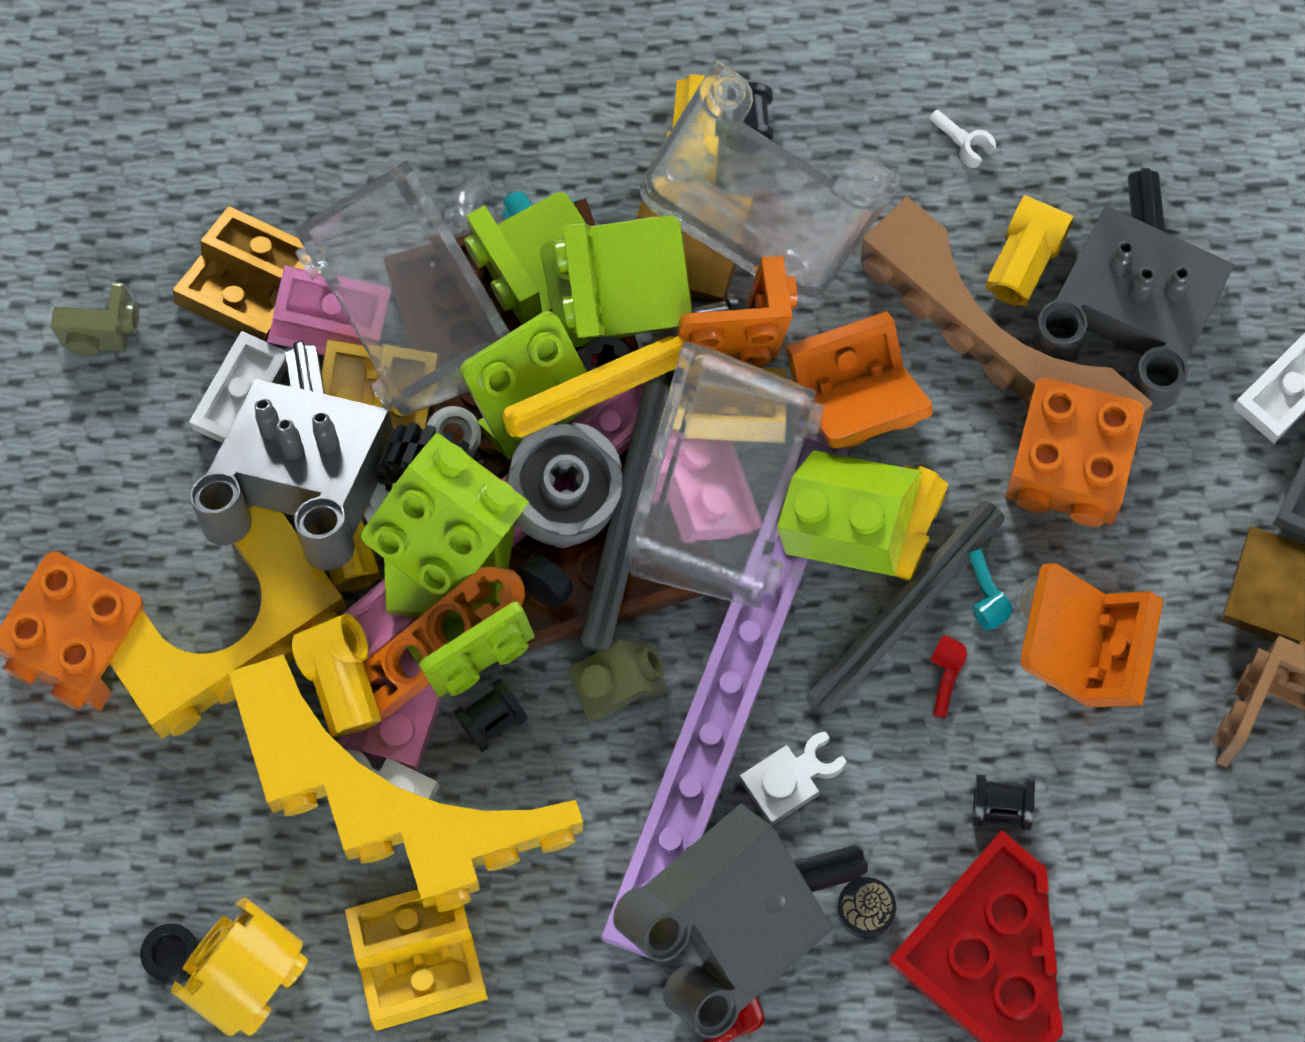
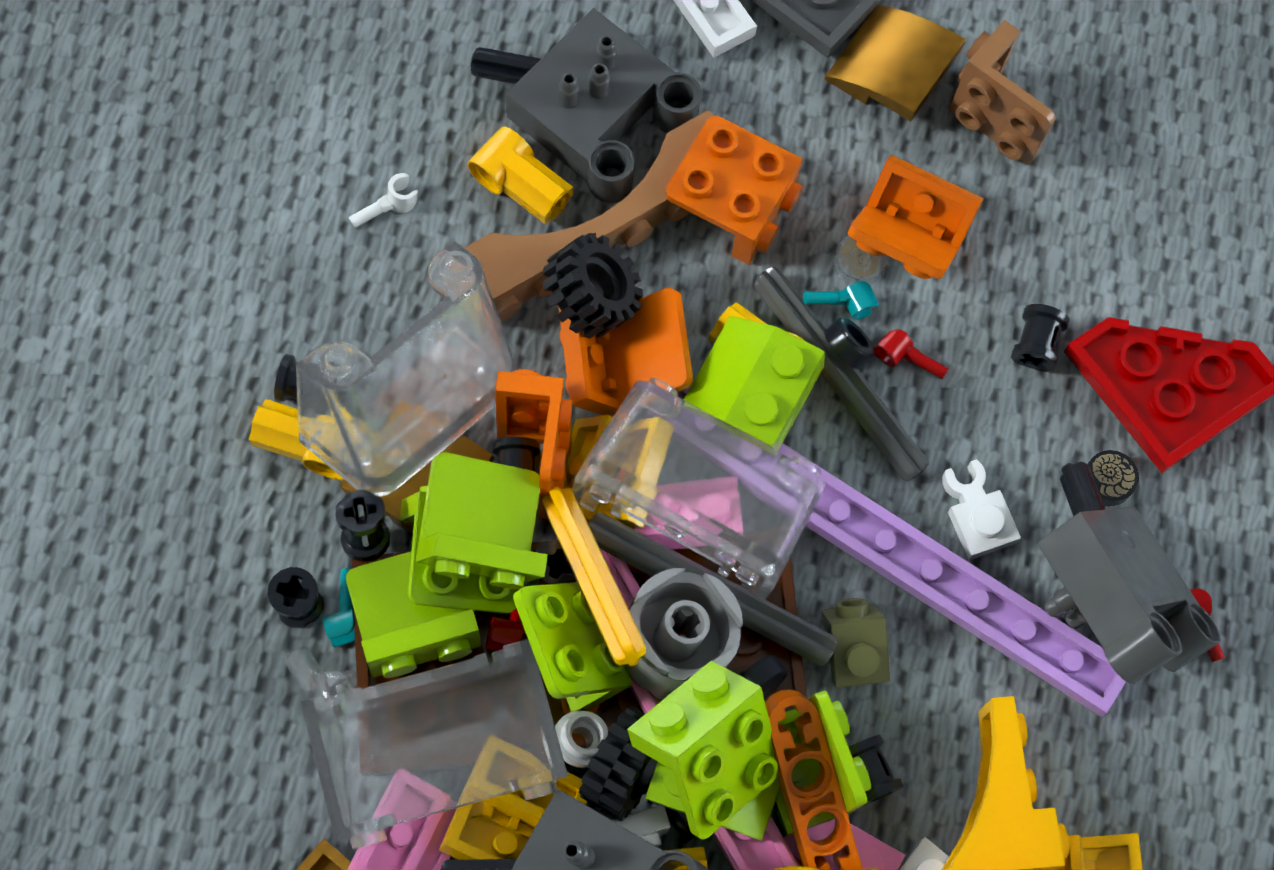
camera: 85 degrees left, 0 degrees up
(530, 147) = (287, 583): none -> black bush
(611, 193) = (355, 527): none -> black bush
(935, 345) = (589, 307): none -> black tyre
(937, 606) = (849, 343): none -> black tile

